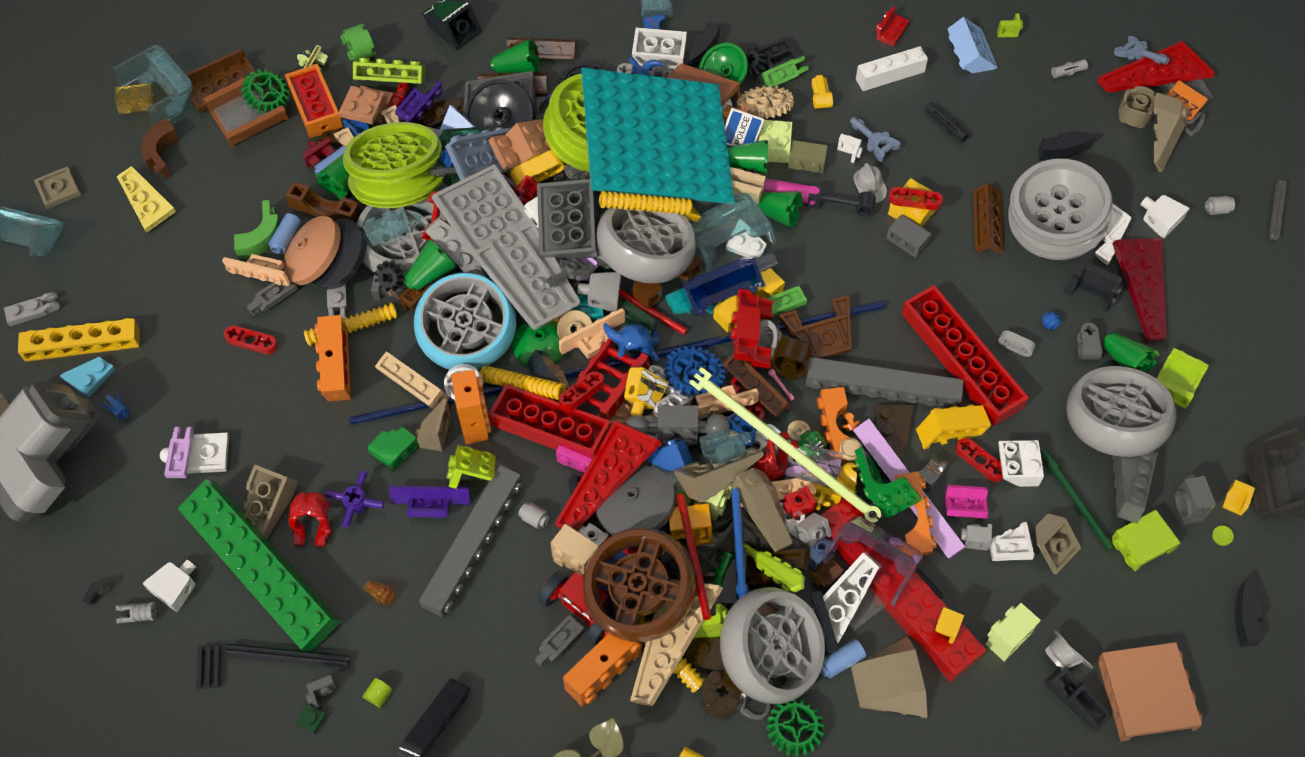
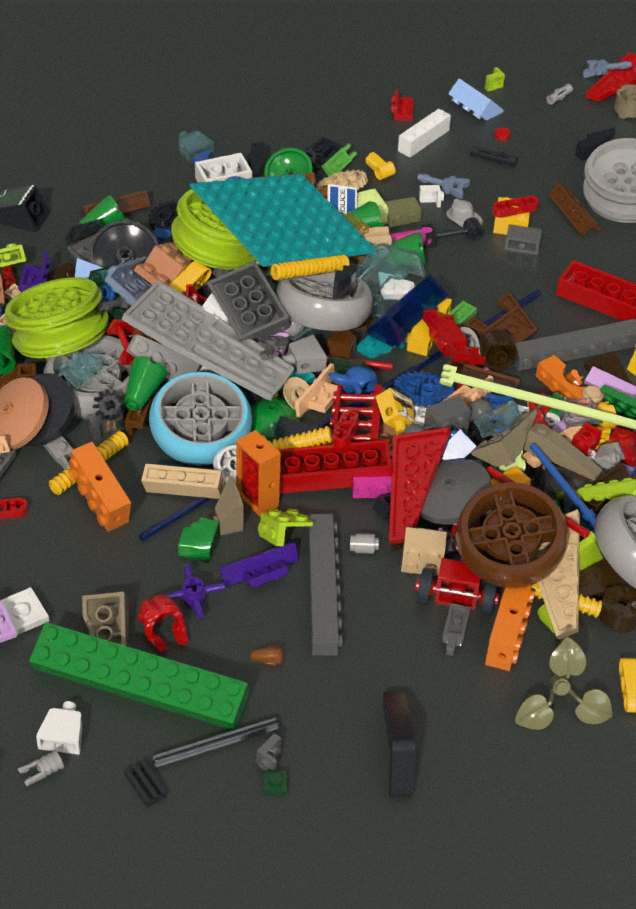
camera: 30 degrees left, 15 degrees down
(377, 692) = (322, 734): lime brick -> none
(487, 68) = (83, 230): none -> black wing
(661, 235) = (344, 281): none -> black slope
(734, 163) = (357, 223): none -> clear yellow axle
(975, 97) = (502, 134): none -> red tile

